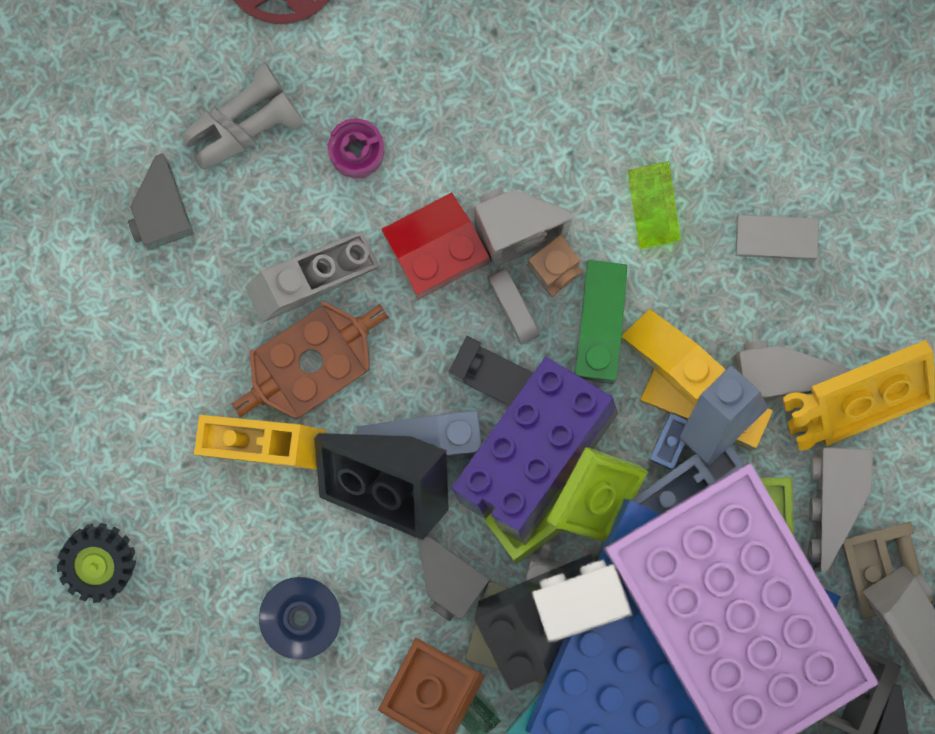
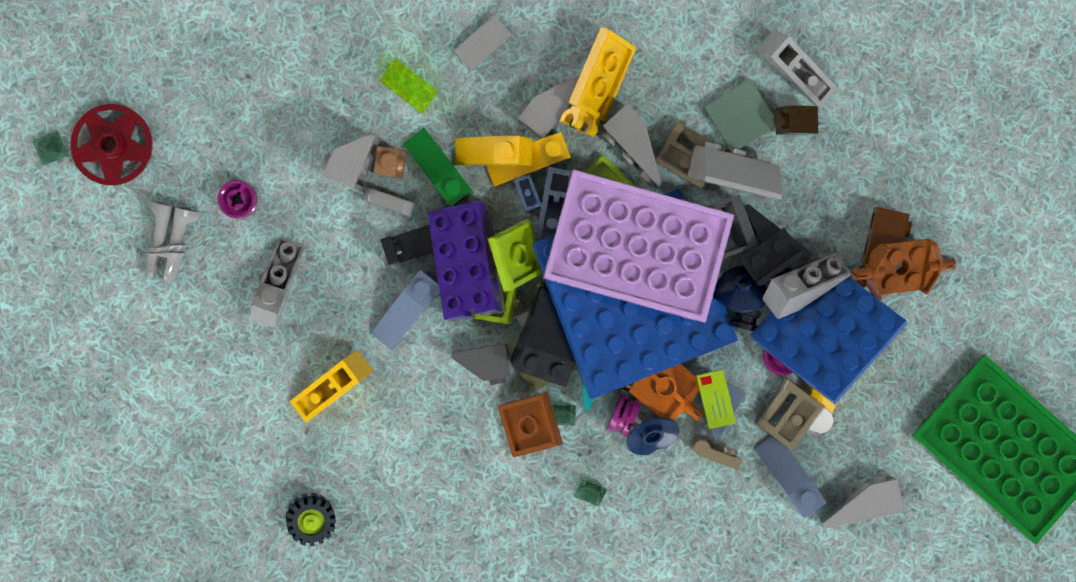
camera: 45 degrees left, 5 degrees up
(159, 208) = (171, 321): dark grey slope -> none
(277, 368) = (305, 343): dark orange plate -> none
(278, 624) = (418, 450): dark blue dish -> none
(385, 479) = (408, 345): black slope -> none
(436, 245) = (322, 209): red slope -> none
(581, 602) = (557, 313): white brick -> none
(722, 415) = (539, 158): sand blue slope -> none

